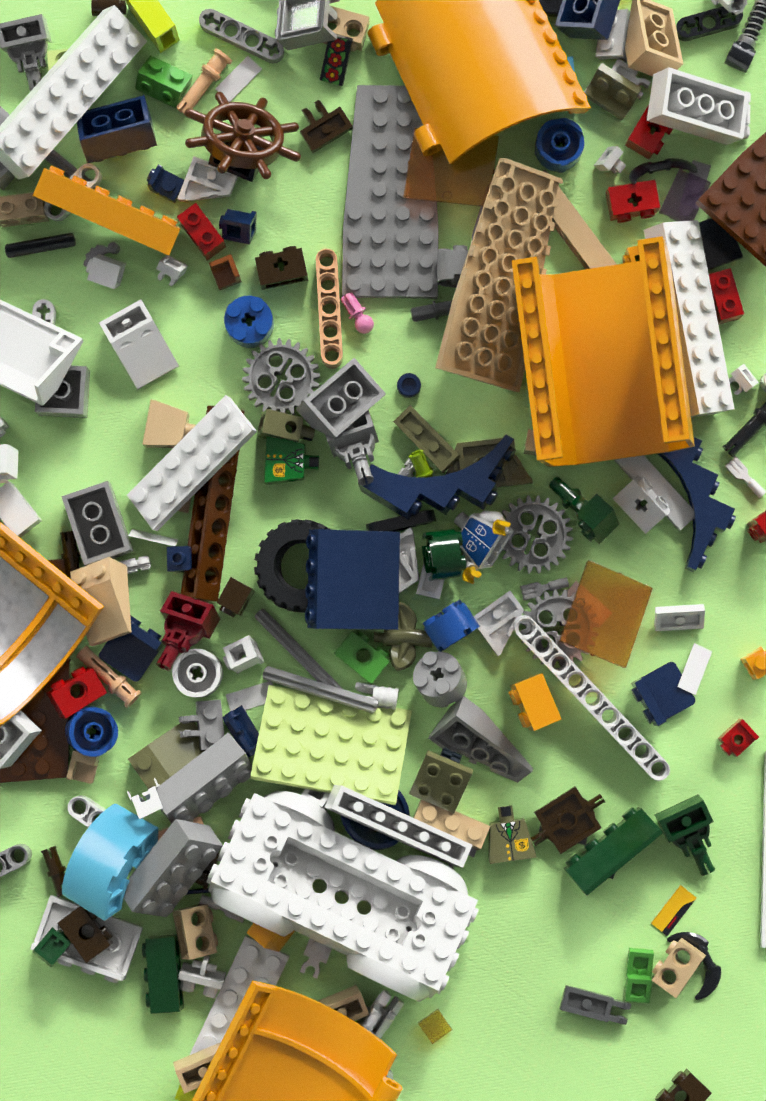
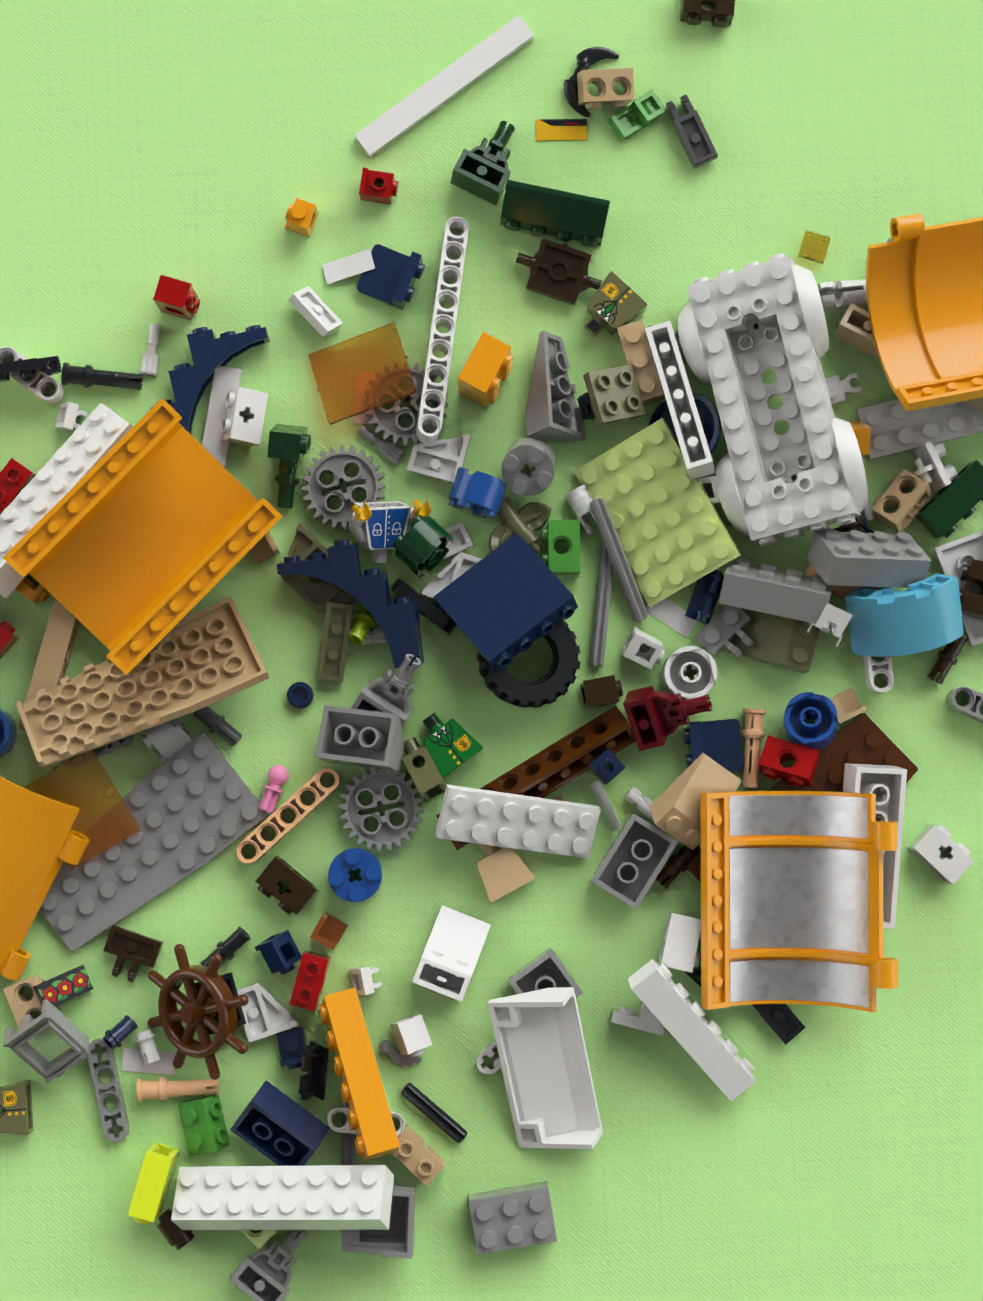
camera: 130 degrees left, 0 degrees up
(141, 189) = (315, 1063): none -> black hinge
(248, 85) = (147, 1046): none -> white pin
(271, 191) = (229, 946): none -> black pin
(274, 73) = (115, 1036): none -> dark blue pin

